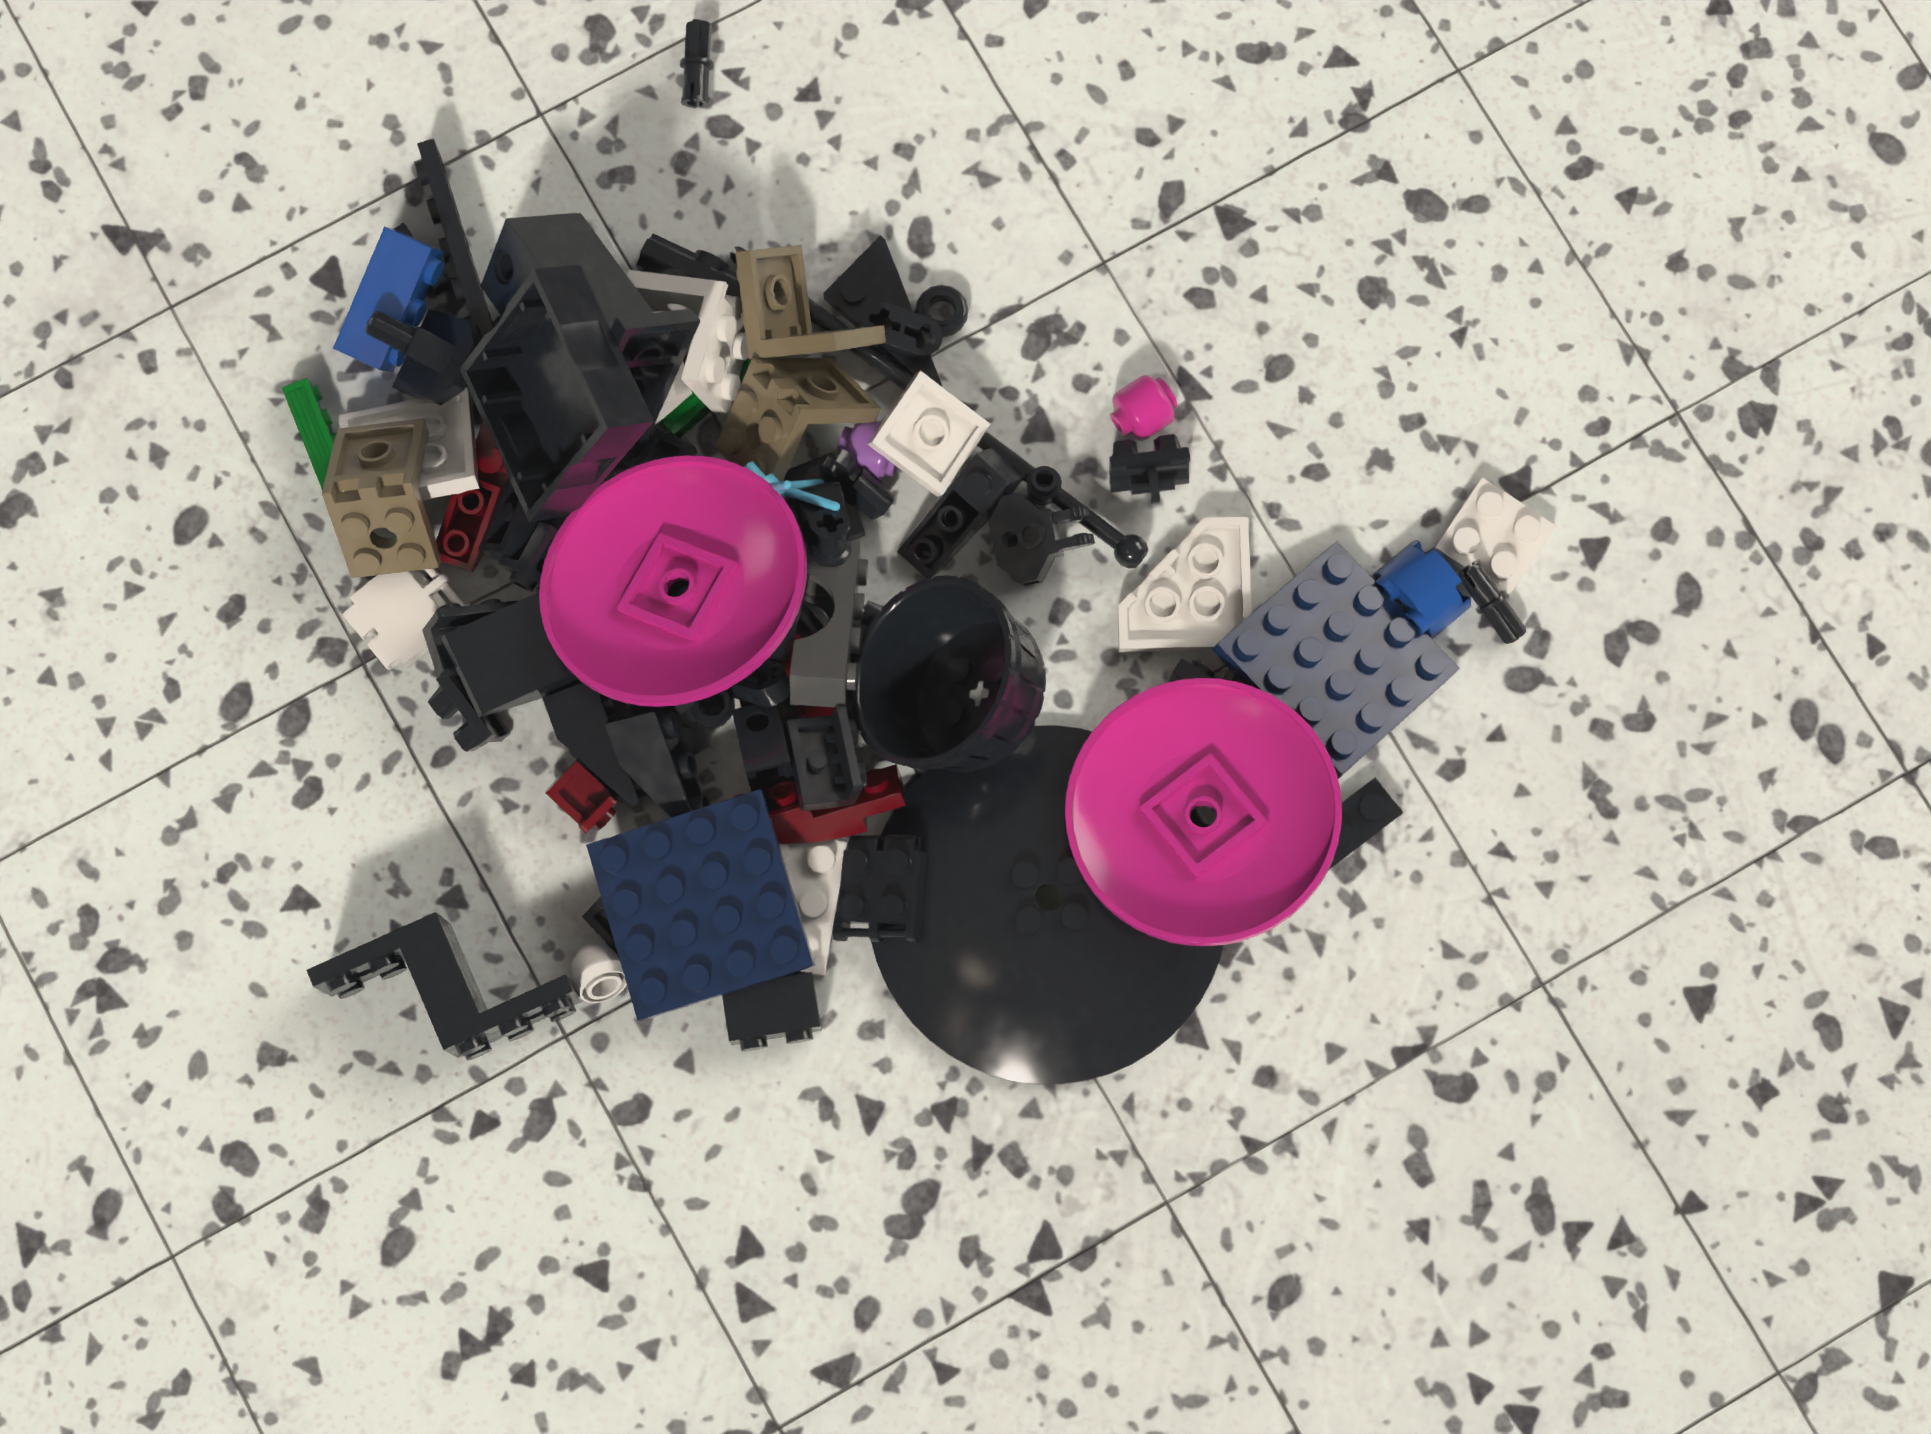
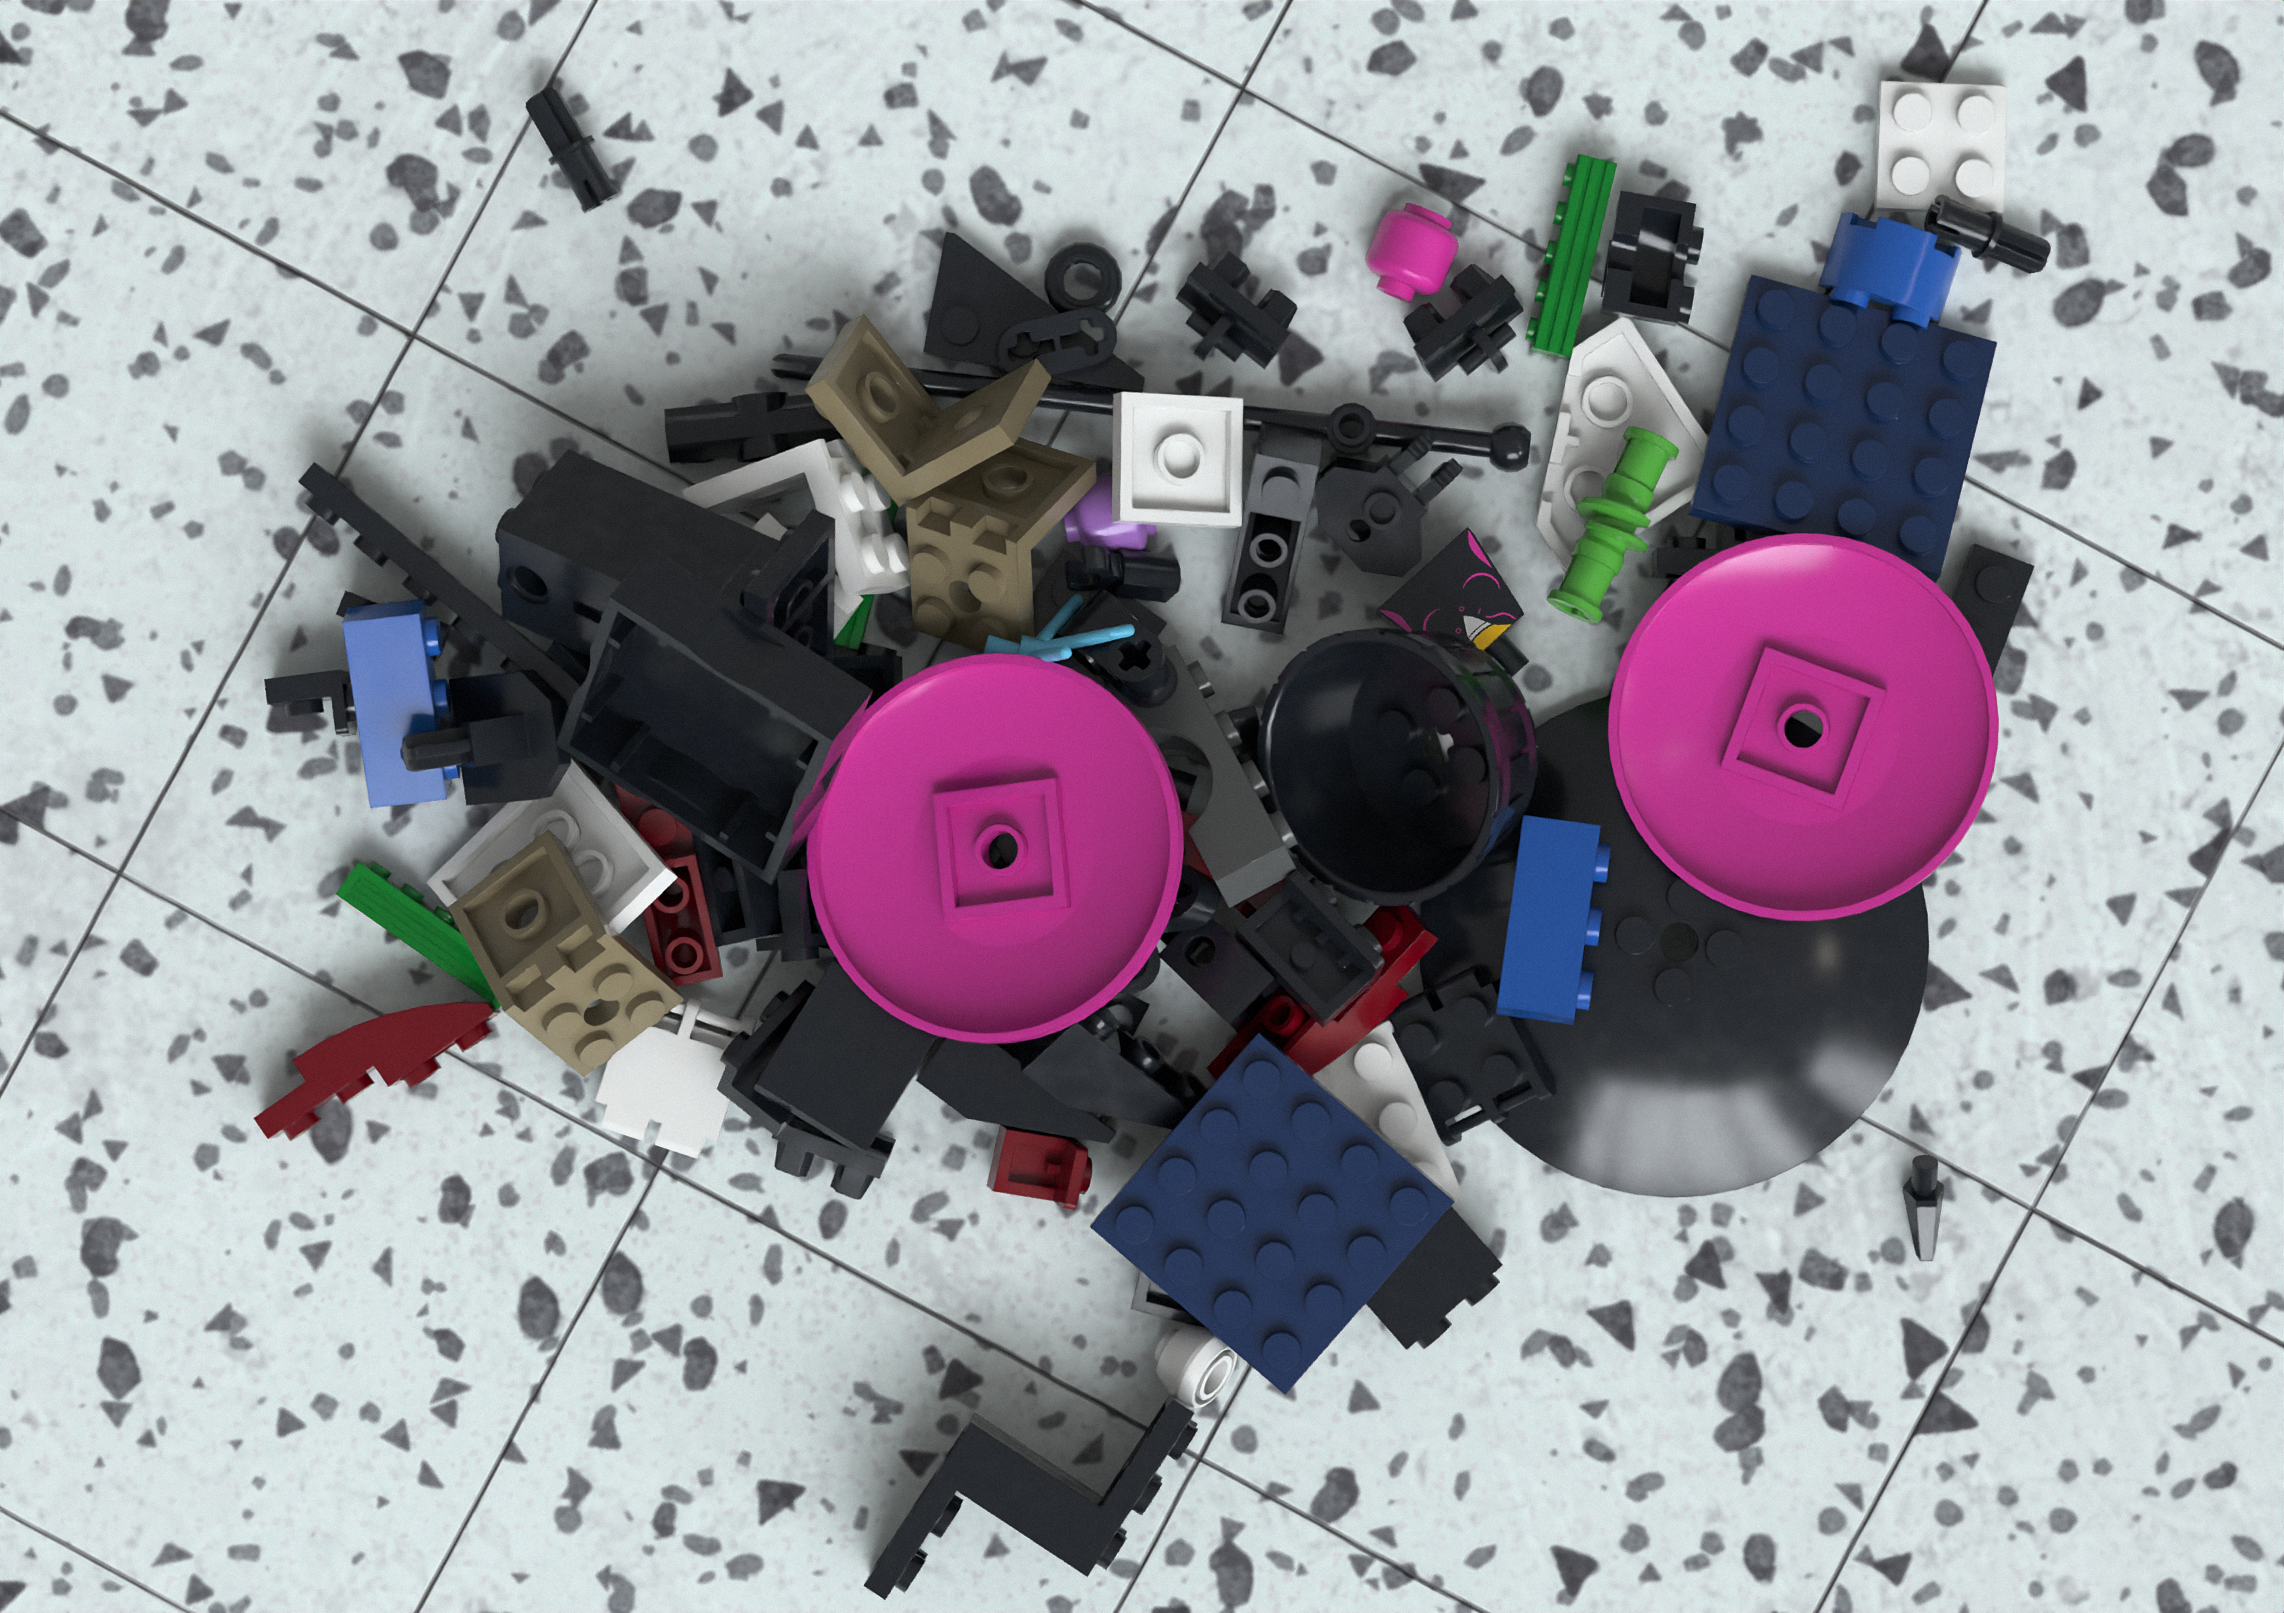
camera: 25 degrees left, 10 degrees up
(255, 494) = (394, 1044): none -> dark red slope
(342, 267) = (305, 696): none -> black bracket
(978, 832) = (1552, 920): none -> blue brick
(1012, 380) = (1229, 318): none -> black hips
(1051, 618) = (1460, 597): none -> black torso
(1101, 1156) = (1923, 1204): none -> black bar
(1163, 625) = (1612, 524): none -> bright green piece
(1236, 467) = (1571, 256): none -> green piece
(1281, 493) = (1649, 258): none -> black cylinder

